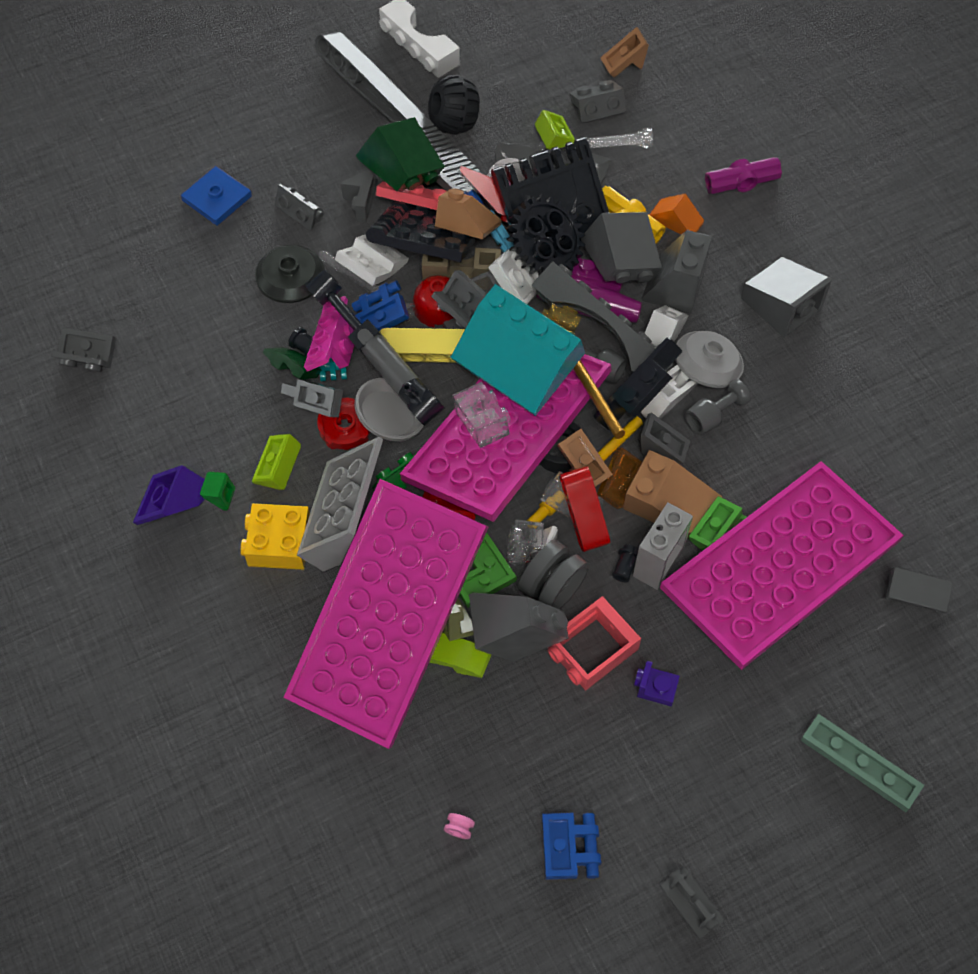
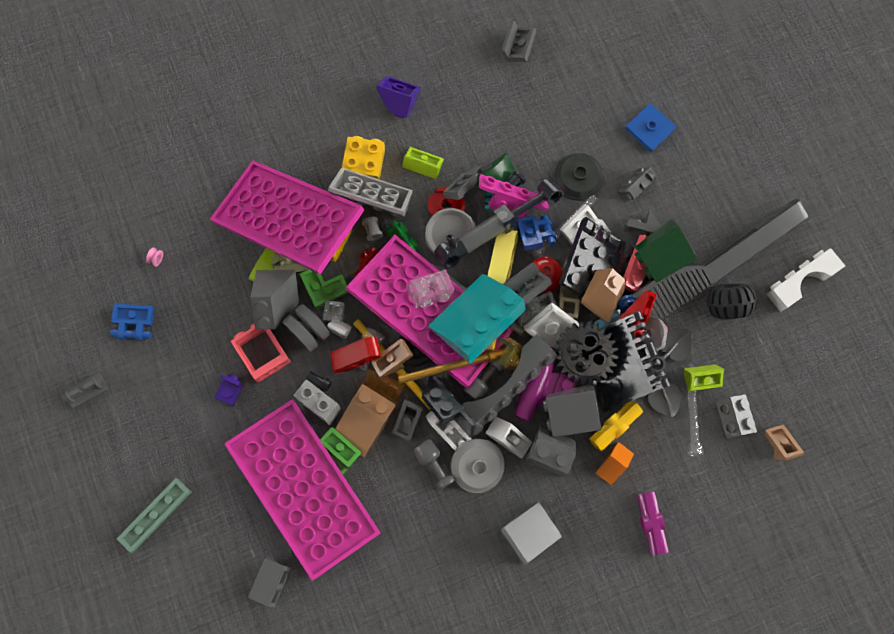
camera: 90 degrees right, 15 degrees up
(218, 489) = (401, 124): green slope -> none

